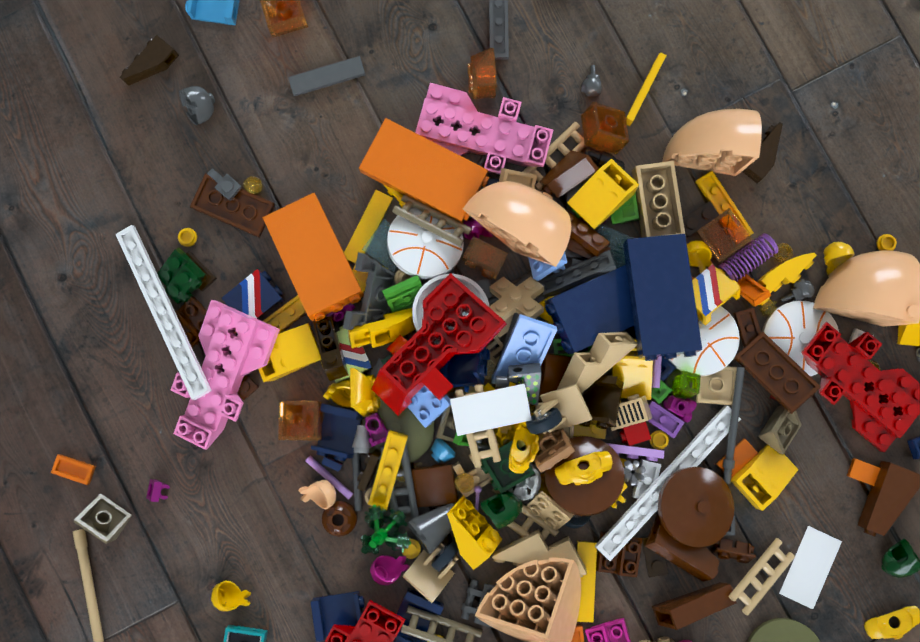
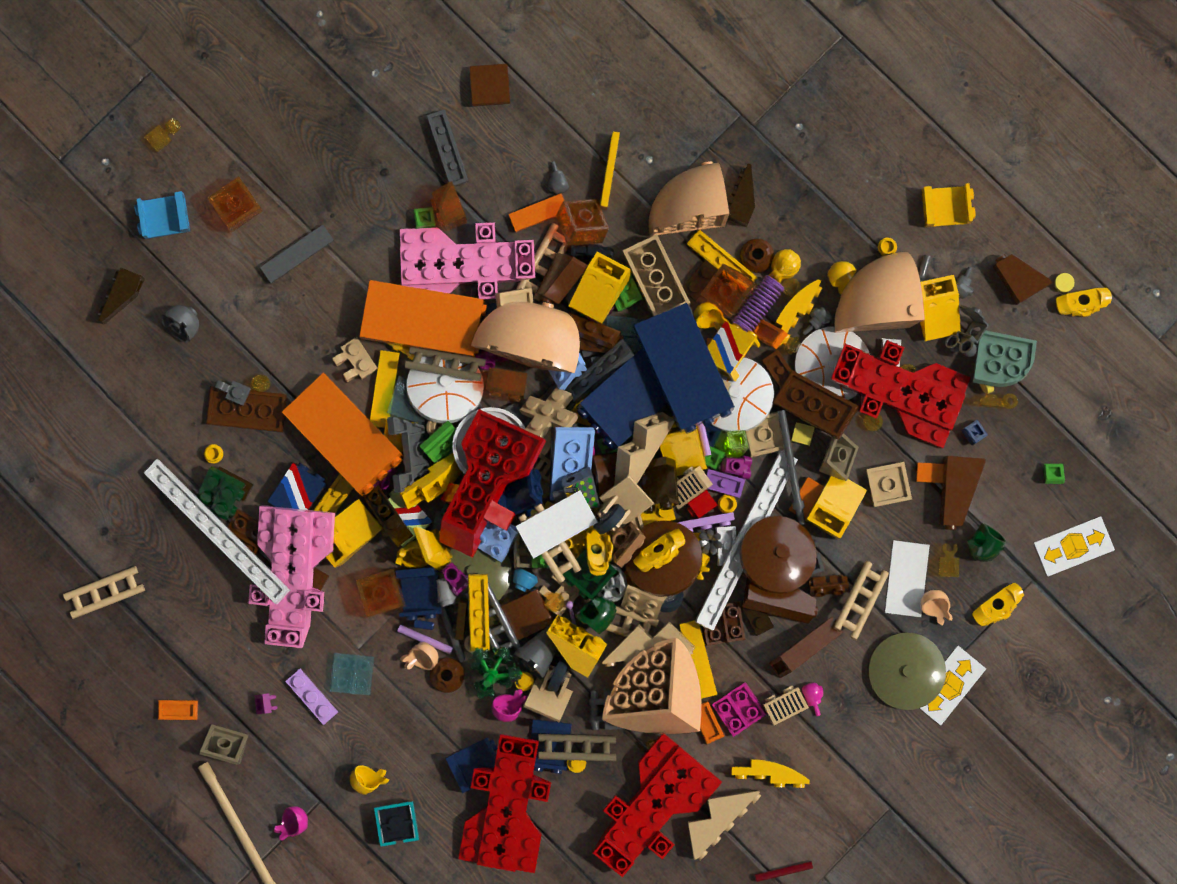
camera: 20 degrees left, 0 degrees up
(32, 336) = (92, 588): none -> tan bar
(145, 615) = (293, 822): none -> dark pink piece
(204, 497) = (312, 696): none -> lavender plate
(249, 488) = (352, 674): none -> clear light blue slope
(352, 189) = (359, 359): none -> tan plate
(456, 79) = (424, 218): none -> bright green tile
(562, 108) = (536, 213): none -> orange tile
(750, 213) = (750, 262): none -> reddish brown piece
(752, 395) = (802, 434): none -> light yellow tile
(784, 229) = (785, 265): none -> yellow piece
(821, 471) = (888, 484): none -> tan plate
(823, 406) = (873, 424): none -> clear yellow plate
(834, 603) = (936, 604): none -> light nougat piece
(857, 568) = (949, 565): none -> clear yellow plate

